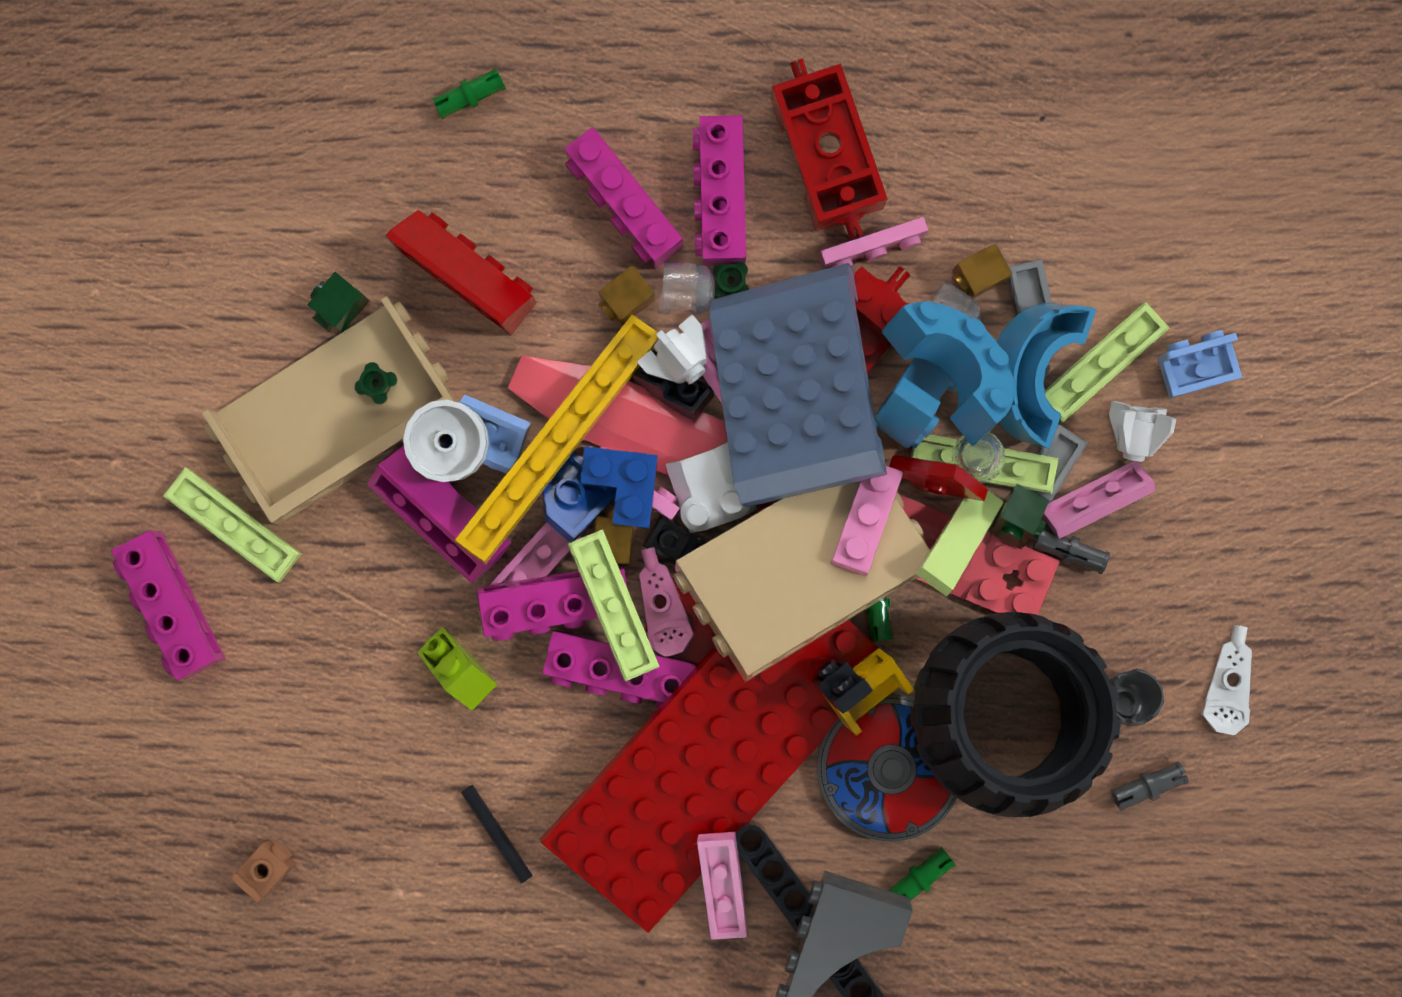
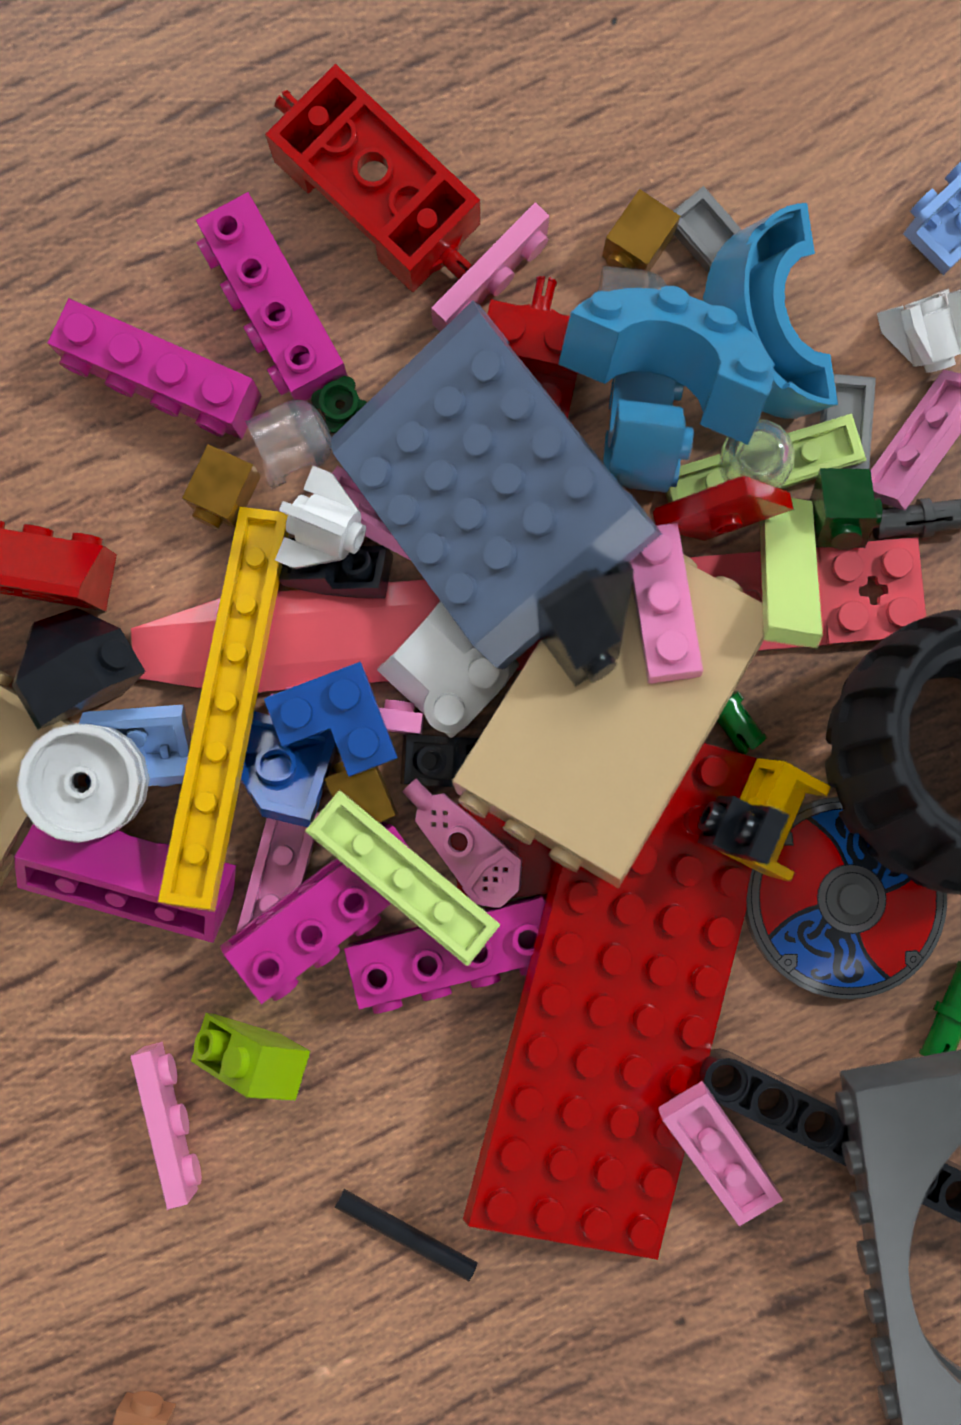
camera: 30 degrees left, 0 degrees up
(383, 683) = (166, 1124): none -> bright pink plate
(475, 362) = (73, 666): none -> black slope
(812, 505) = (586, 622): none -> black slope
(1105, 360) = (845, 264): yellowish green tile -> none

